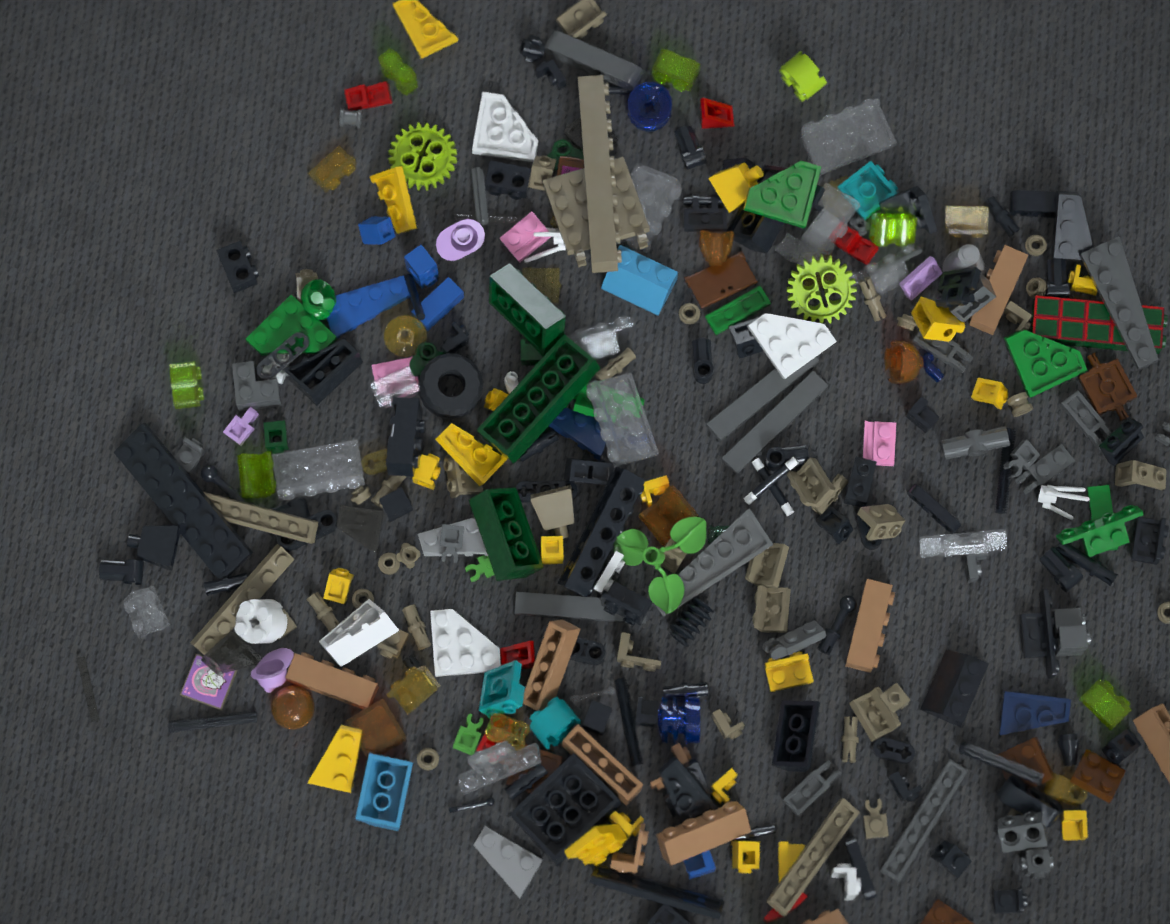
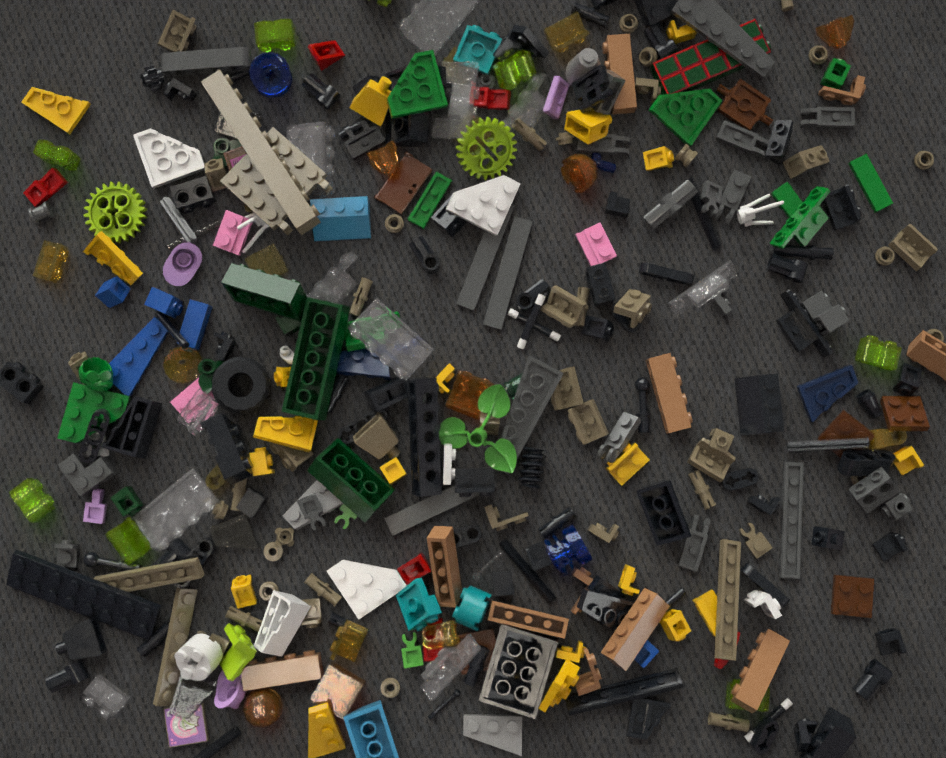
camera: 30 degrees left, 10 degrees up
(306, 639) = (239, 654): none -> lime bracket

